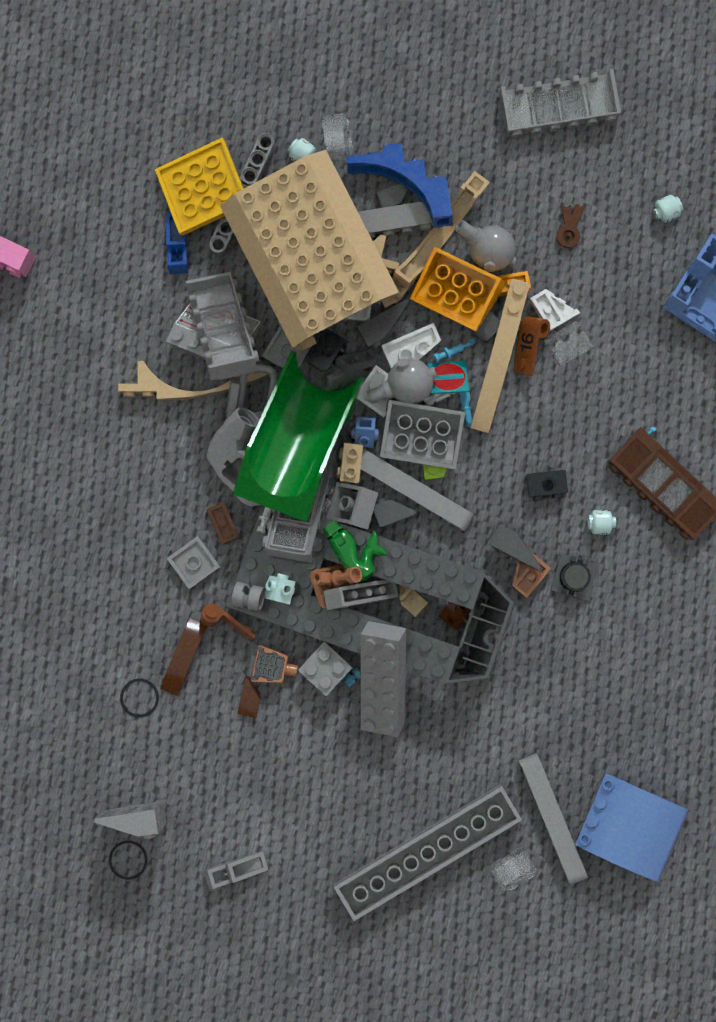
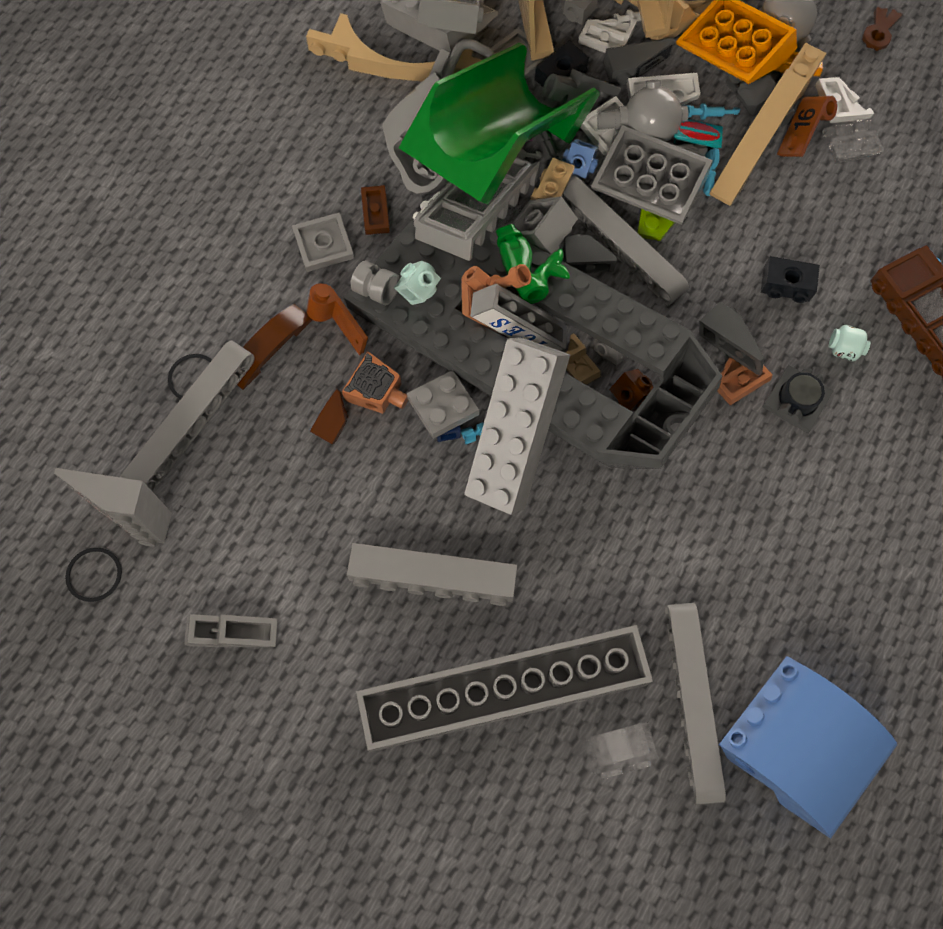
camera: 15 degrees right, 15 degrees down
(150, 734) = (190, 415): none -> light grey beam
(356, 788) = (432, 573): none -> light grey brick

